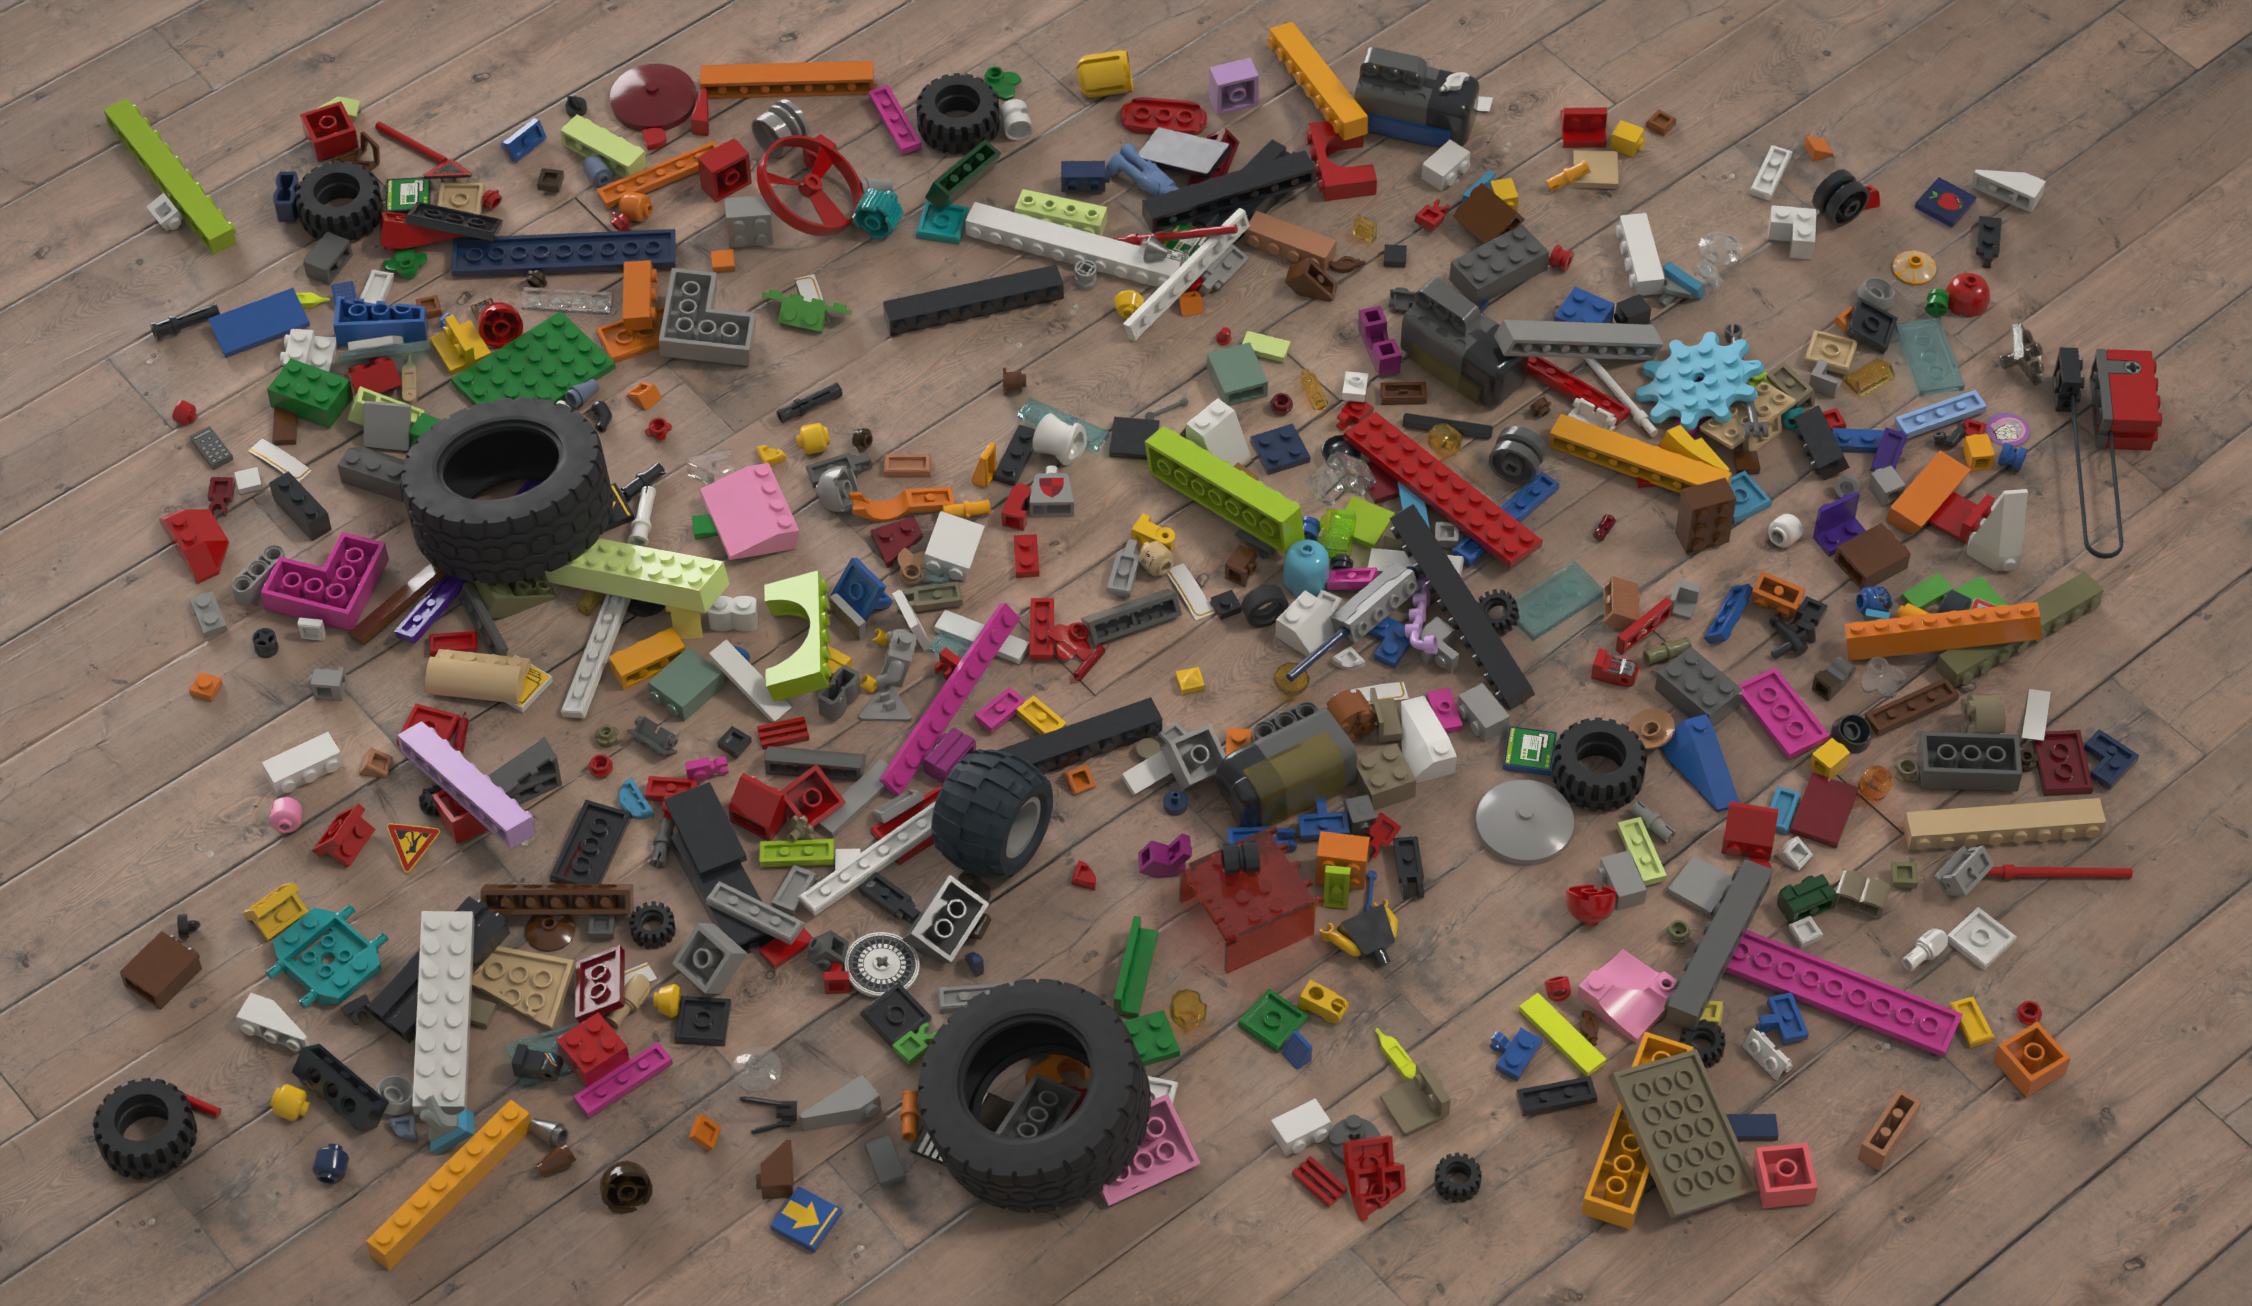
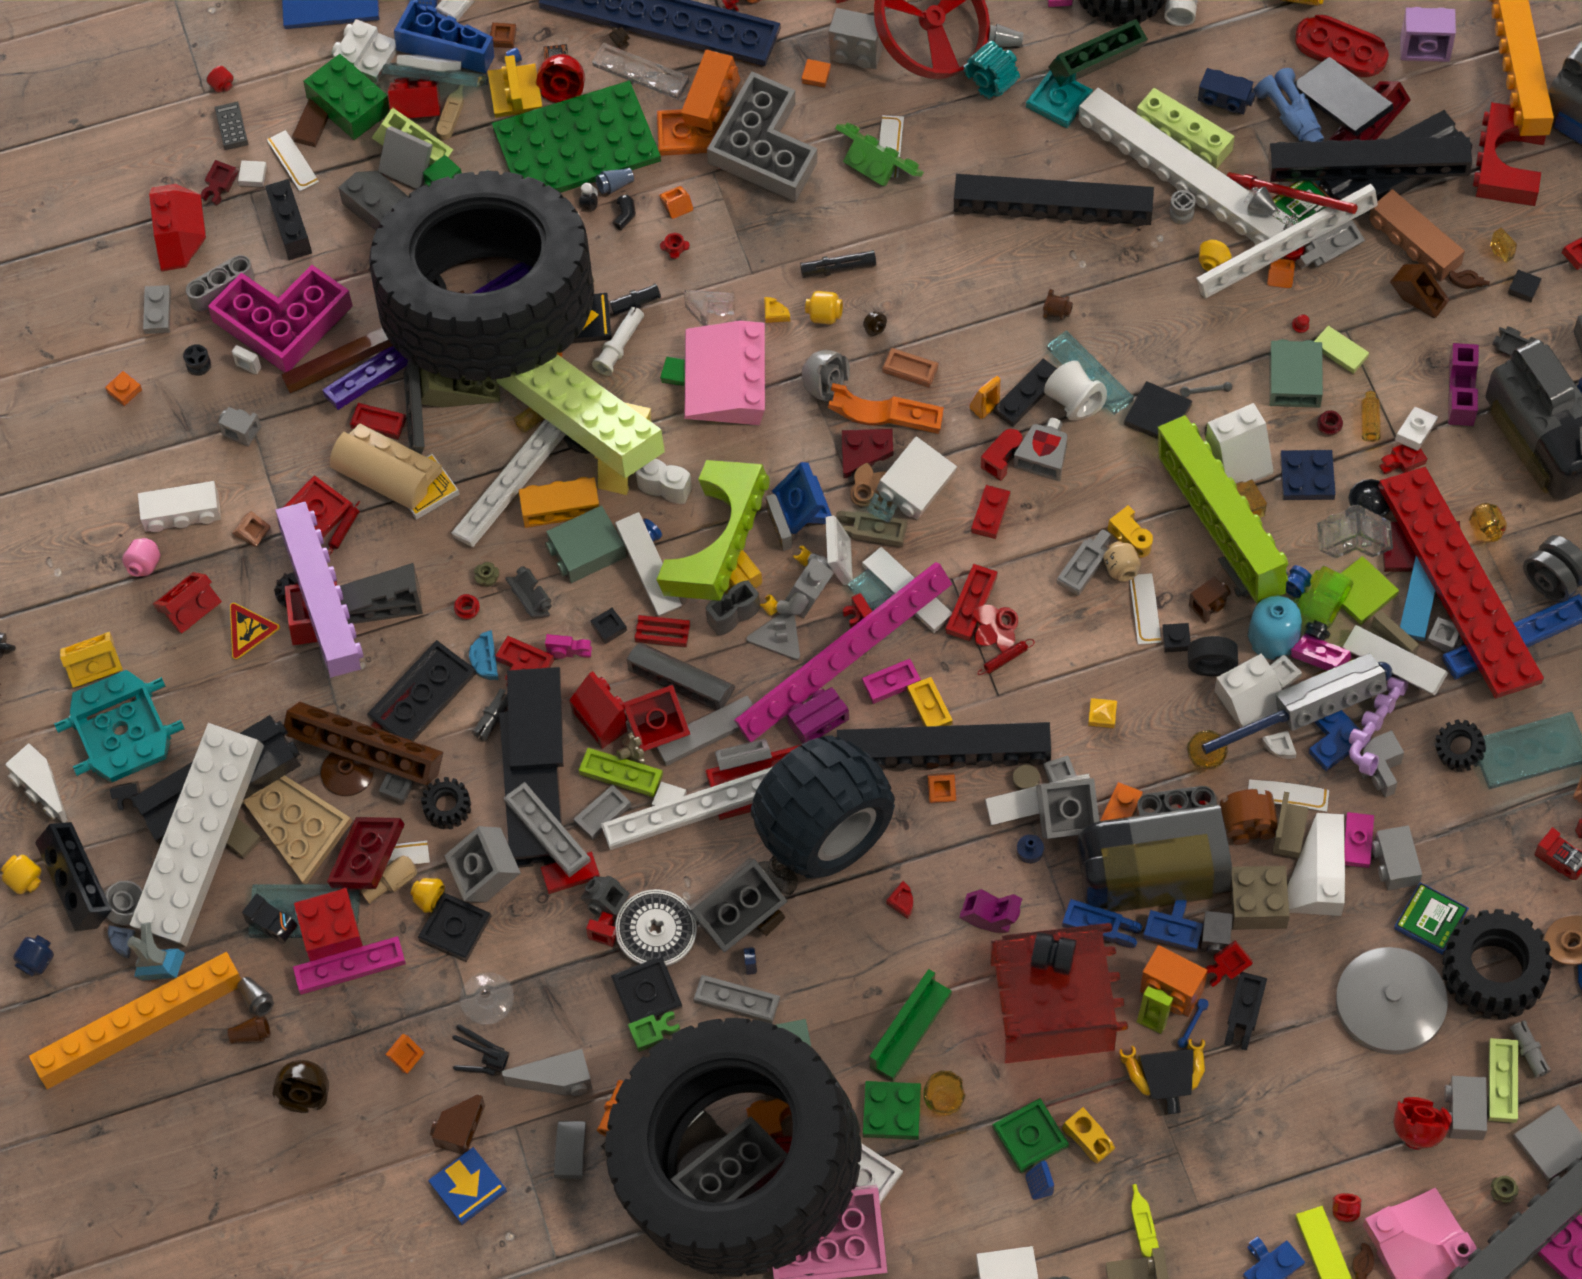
camera: 25 degrees right, 10 degrees up
(856, 463) = (846, 345): dark grey hinge -> none
(889, 898) = (693, 855): black hinge -> none
(968, 509) = (949, 439): light orange pin -> none
(1132, 616) = (1070, 618): dark grey brick -> none
(1403, 393) = (1466, 455): reddish brown tile -> none
(1462, 427) = (1509, 510): black axle -> none
(1462, 607) = (1422, 729): black brick -> none

